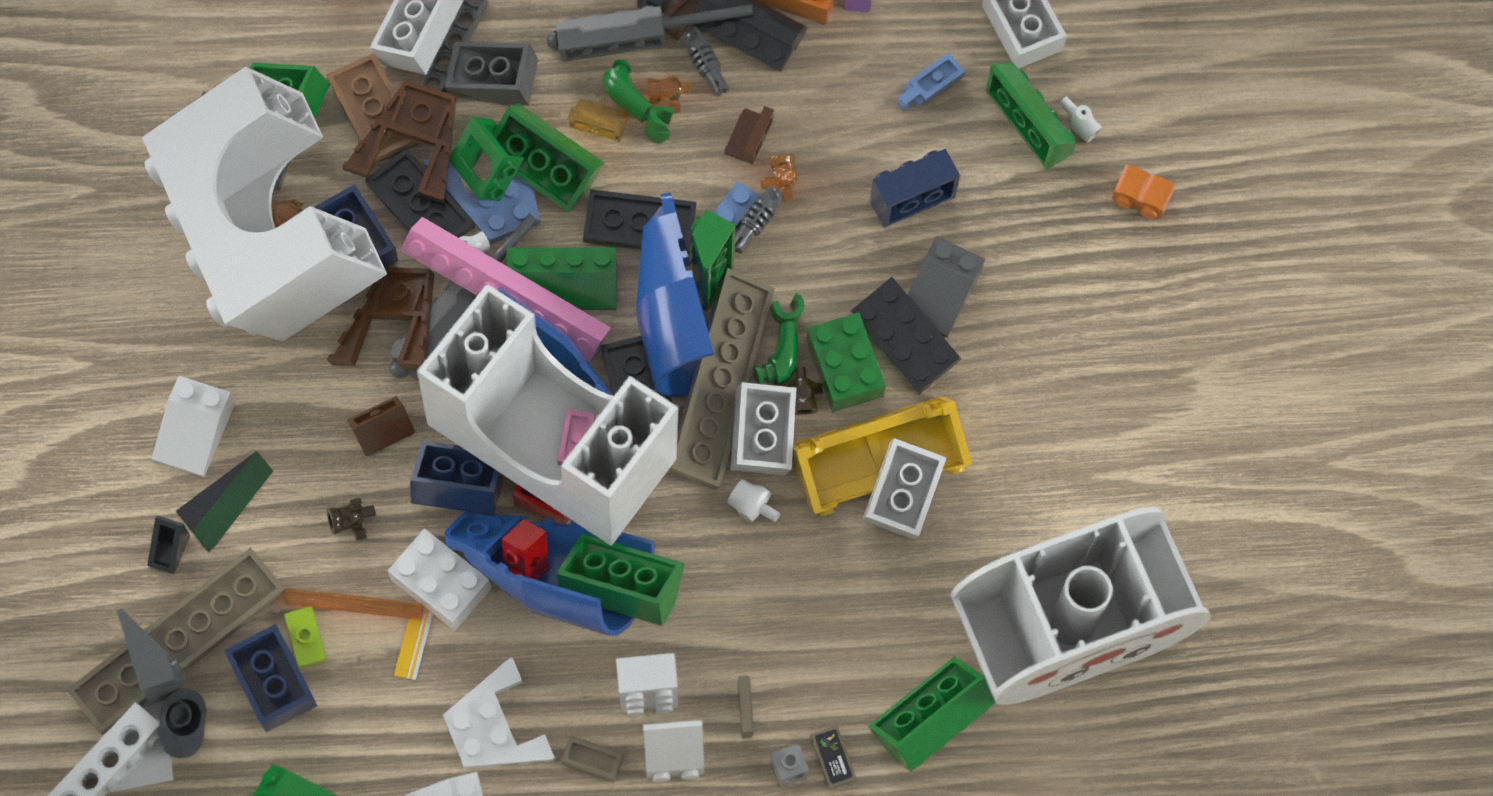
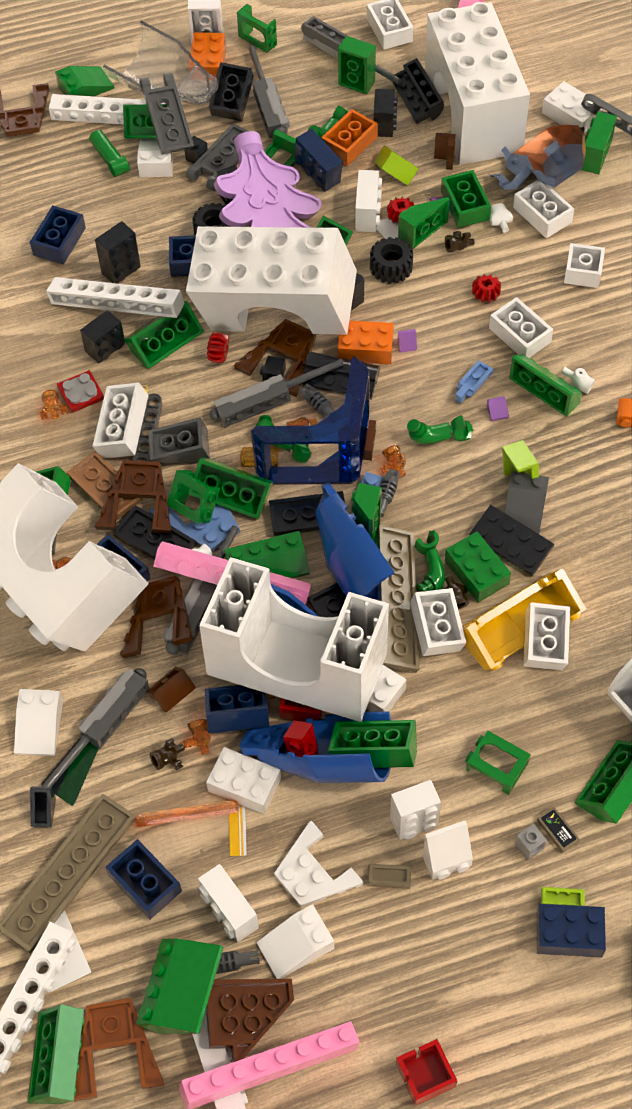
camera: 10 degrees left, 10 degrees down
(153, 667) = (59, 891): dark grey slope -> none
(182, 723) = (88, 927): black piece -> none
(284, 442) = (106, 716): none -> piece
(305, 637) = (159, 845): lime plate -> none
(367, 741) = (227, 904): none -> white brick
(399, 502) = (200, 736): none -> clear orange piece
(575, 427) = (313, 654): bright pink plate -> none
(664, 507) = (386, 691): none -> white brick
(708, 120) = (341, 427): none -> clear blue window
(745, 707) = (486, 810): dark tan tile -> none
(751, 501) = (444, 672): white piece -> none
(786, 675) = (507, 781): none -> green panel
(850, 148) = (432, 434): none -> green piece
(914, 187) = (485, 445): dark blue brick -> none
(951, 223) = (519, 459): none -> lime panel
(952, 133) = (497, 408): none -> medium lavender slope

